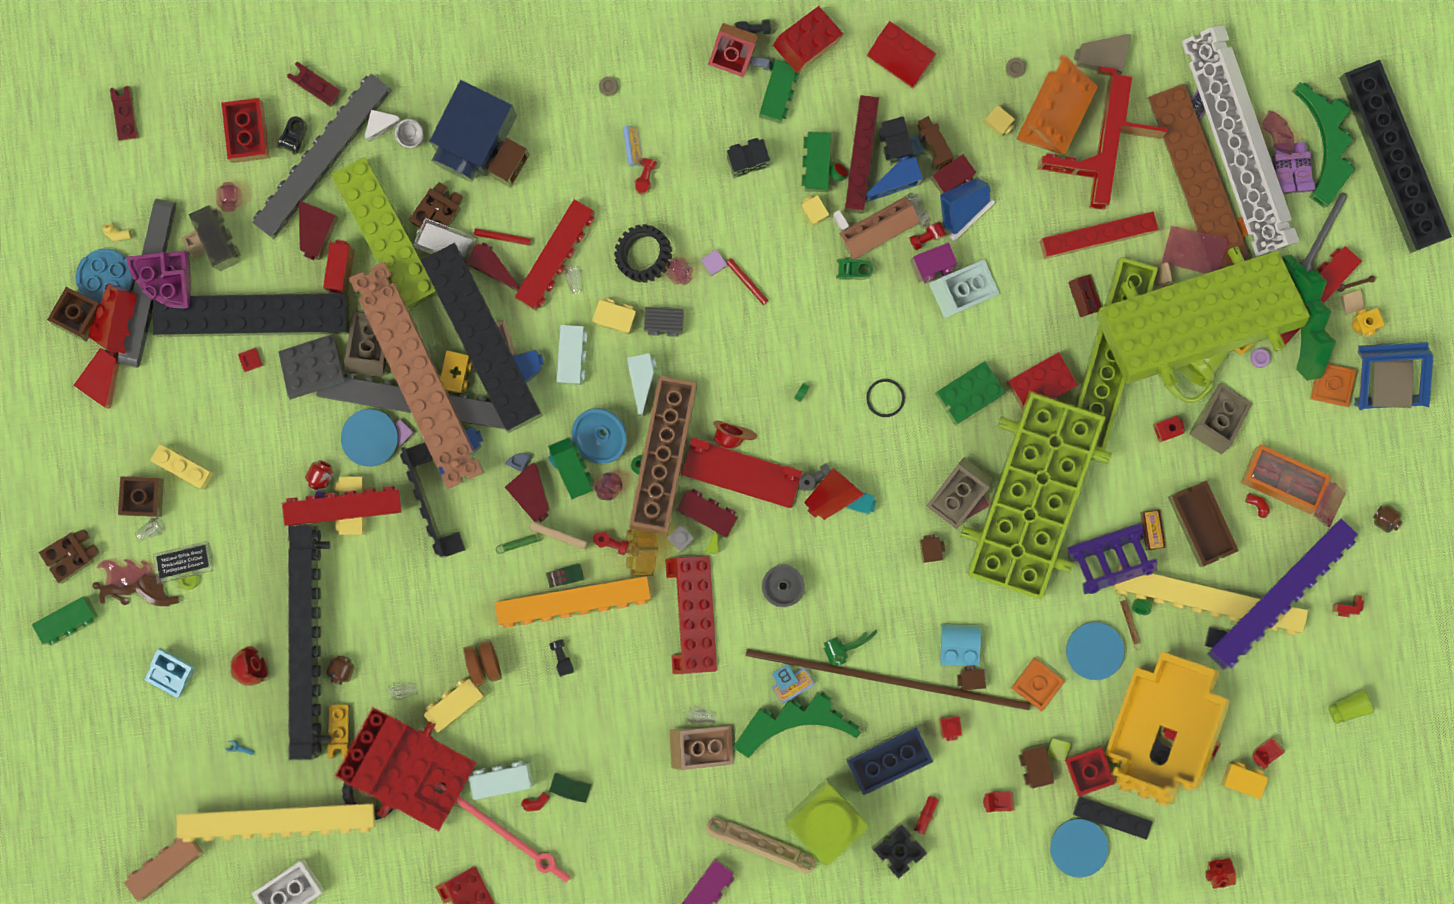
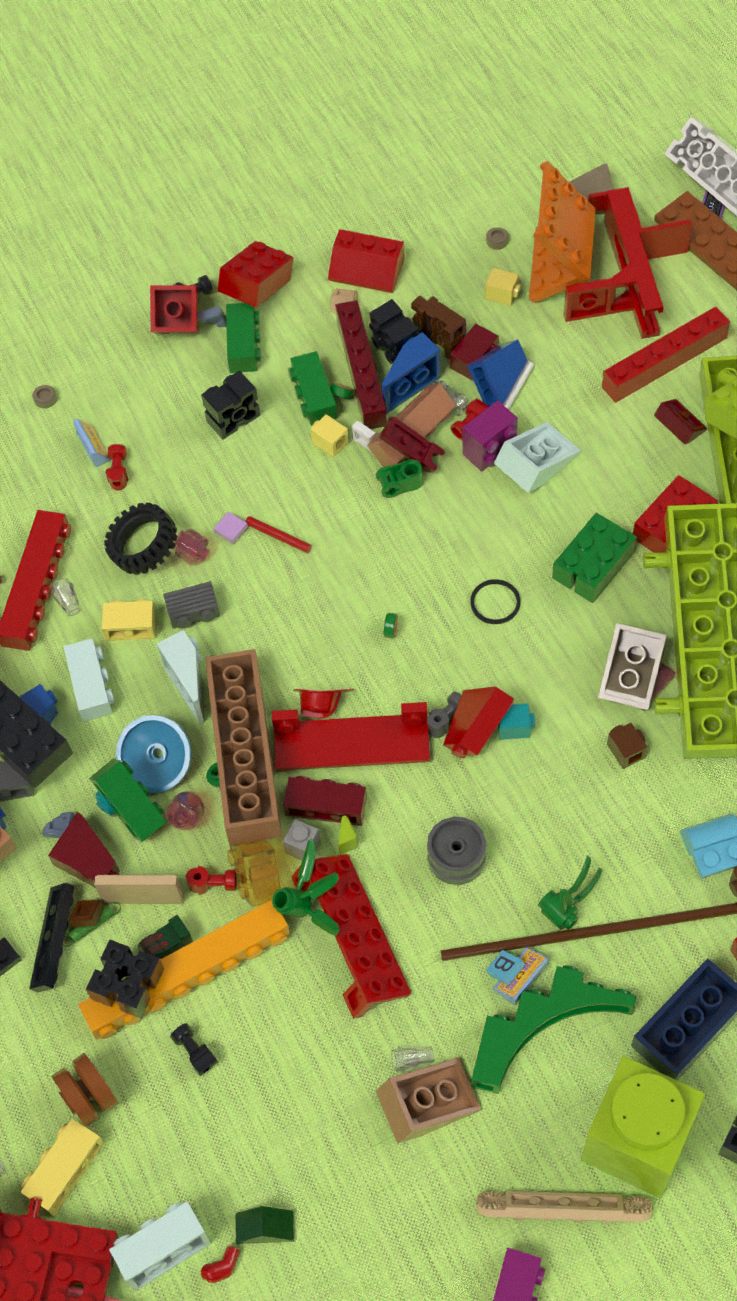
camera: 15 degrees left, 25 degrees down
(490, 544) = (52, 937): none -> black plate
(518, 536) = (86, 913): none -> reddish brown tile
(542, 600) = (130, 994): none -> black brick
(663, 583) = (298, 903): none -> green plant
(871, 82) = (342, 296): none -> tan slope
(871, 249) = (411, 443): none -> dark red plate

